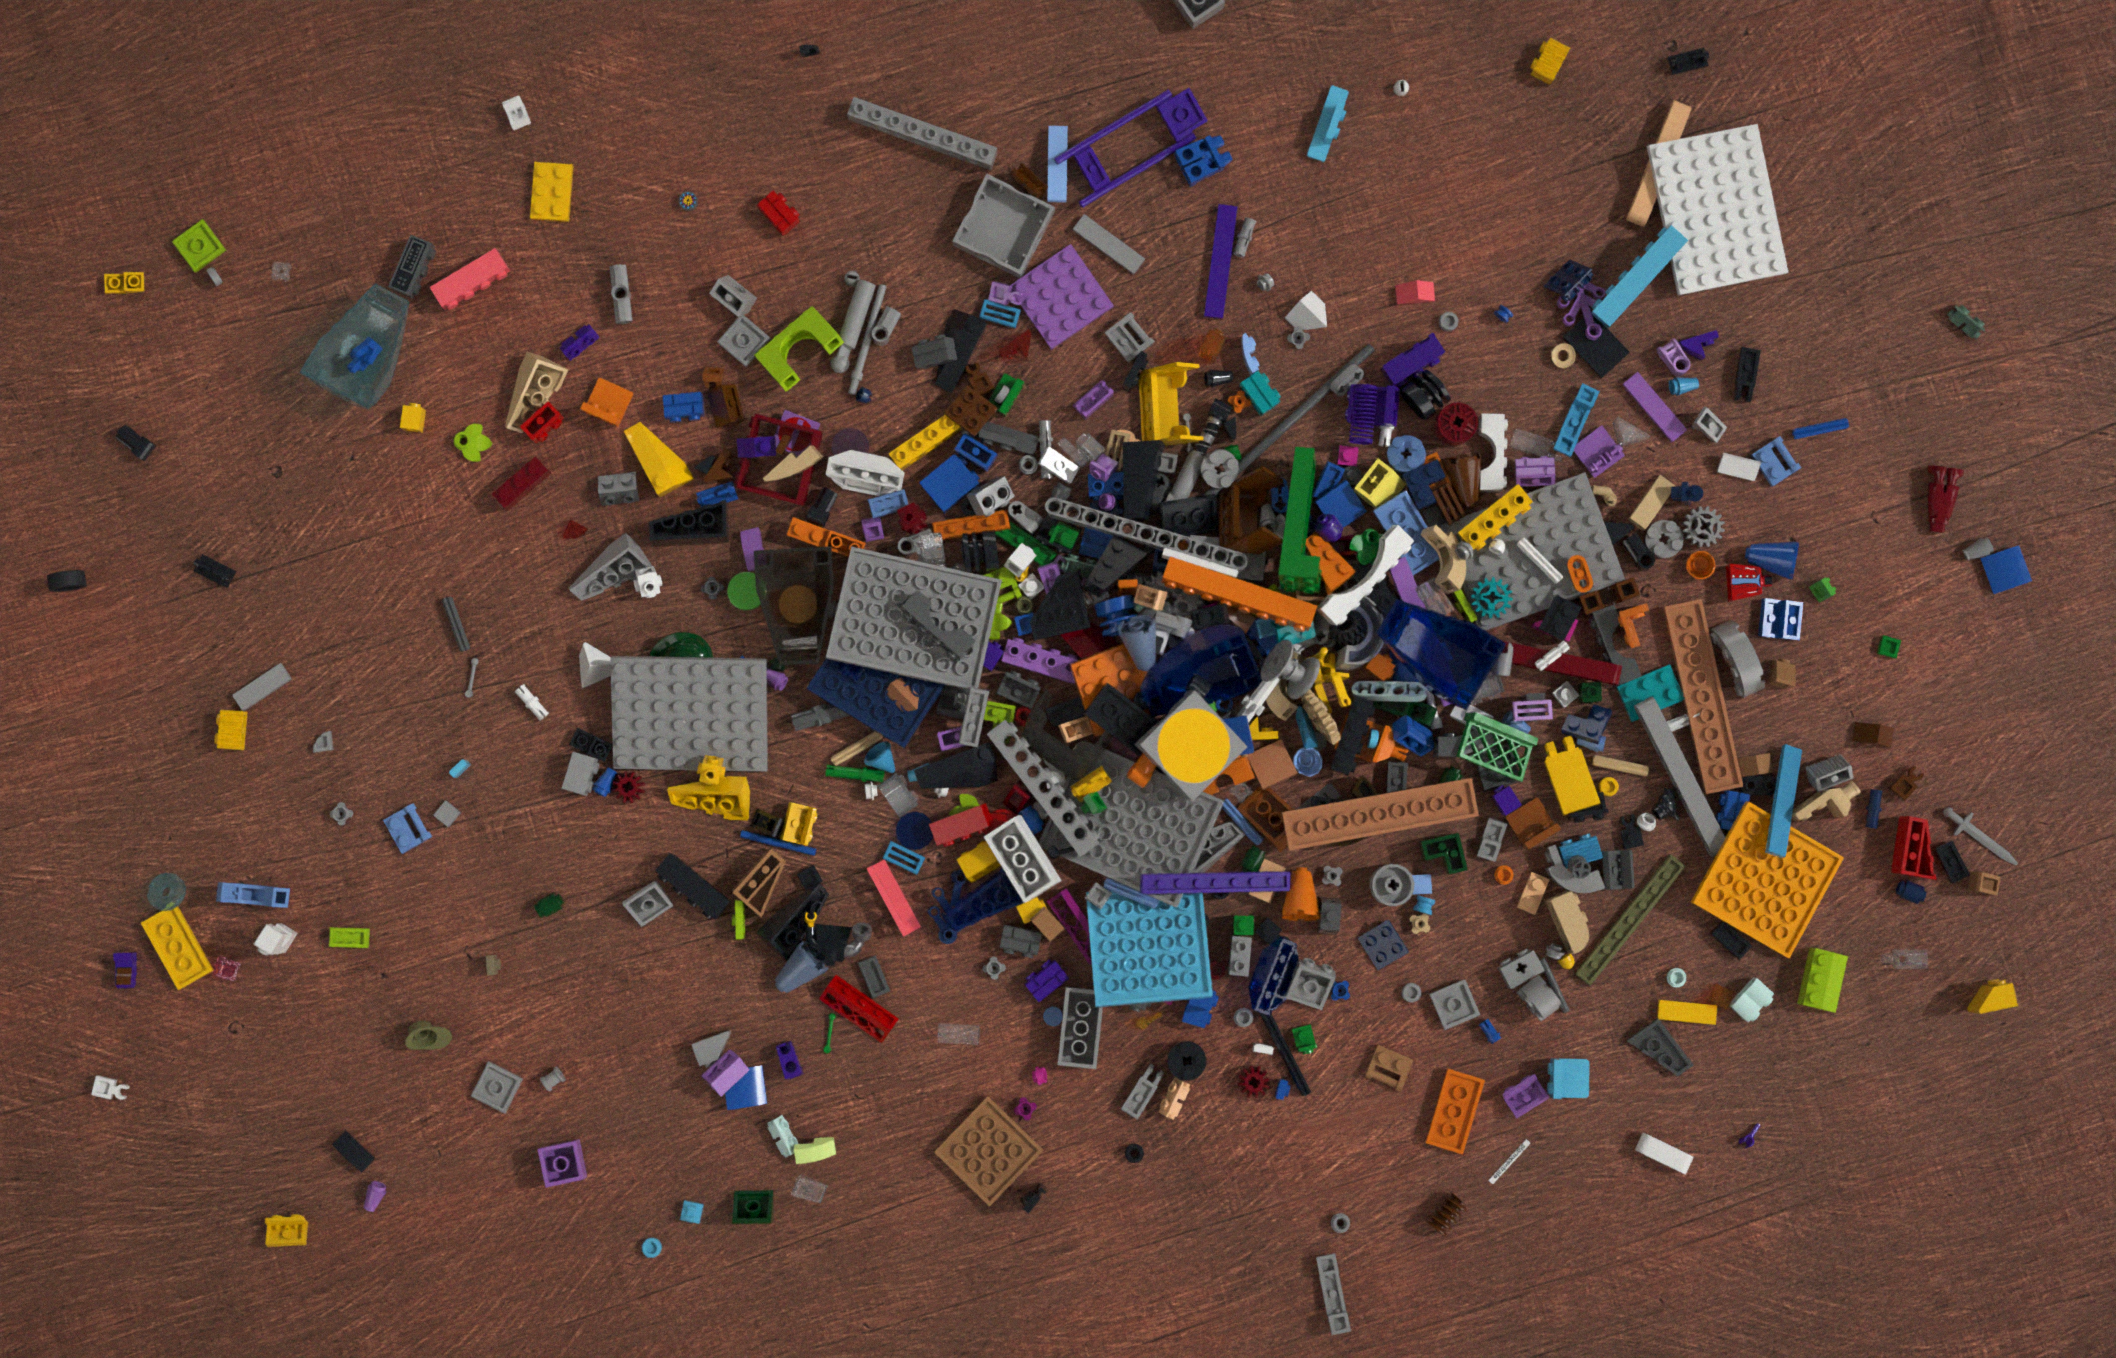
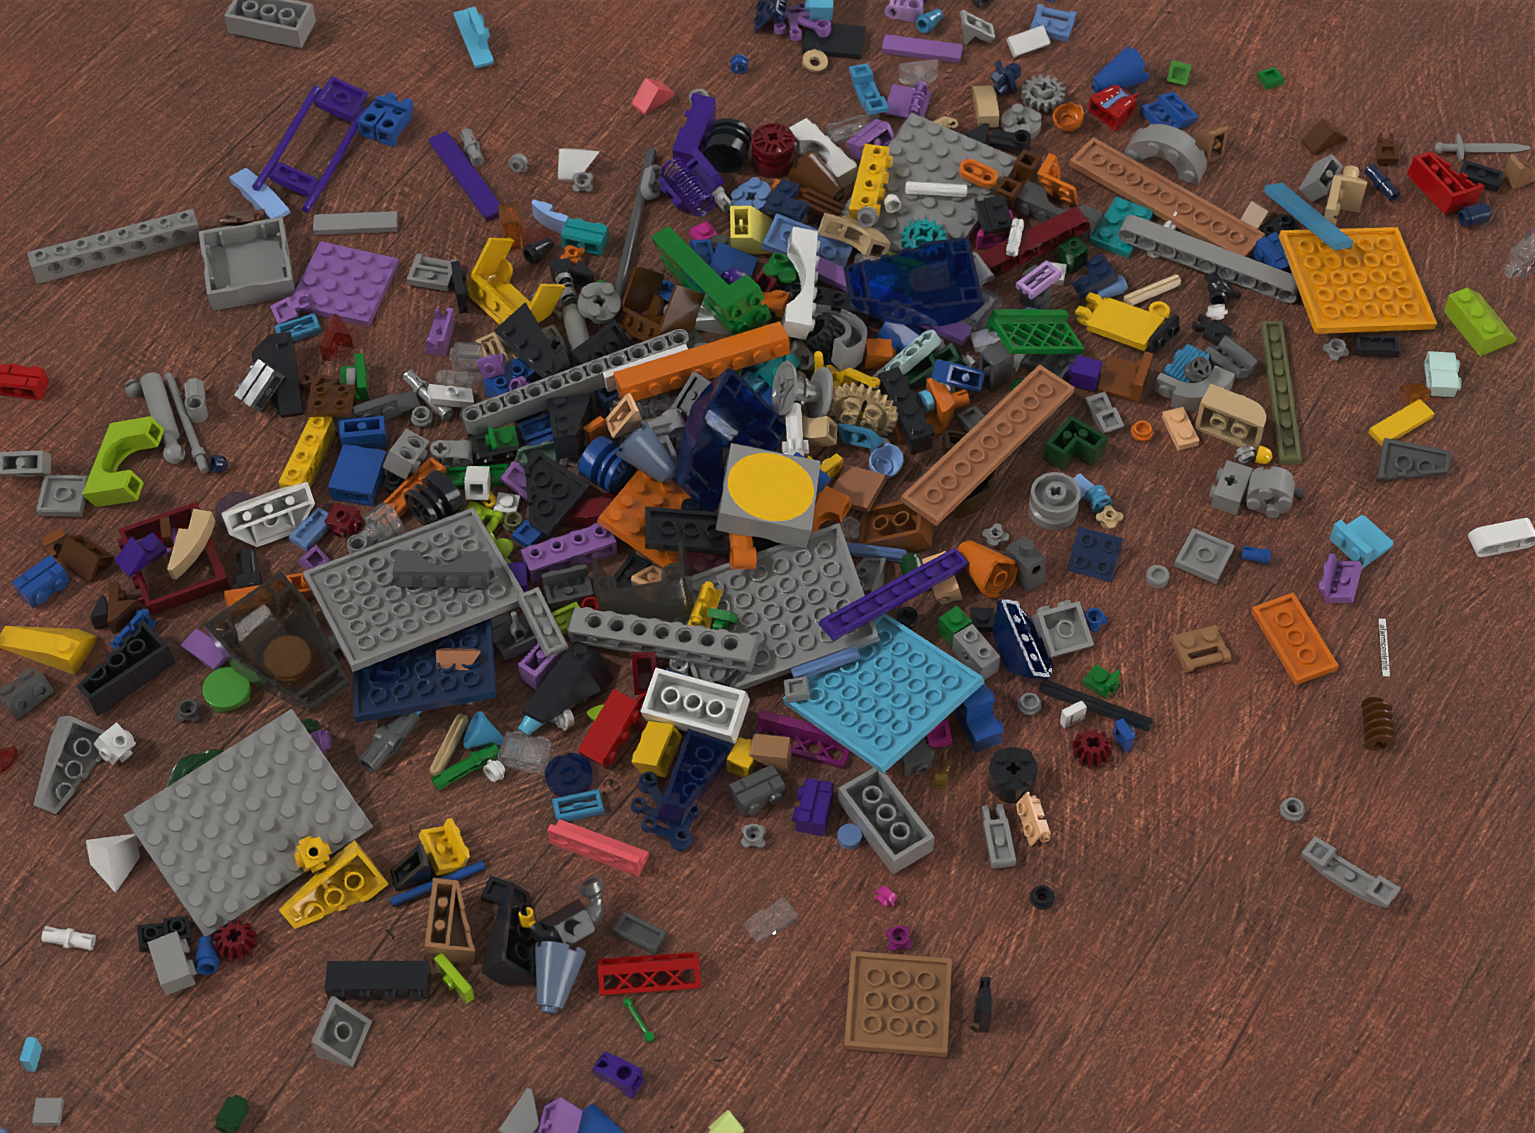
camera: 35 degrees left, 30 degrees down
(1676, 977) = (1364, 403): light aqua plate -> none
(1695, 919) = (1336, 349): none -> light grey plate

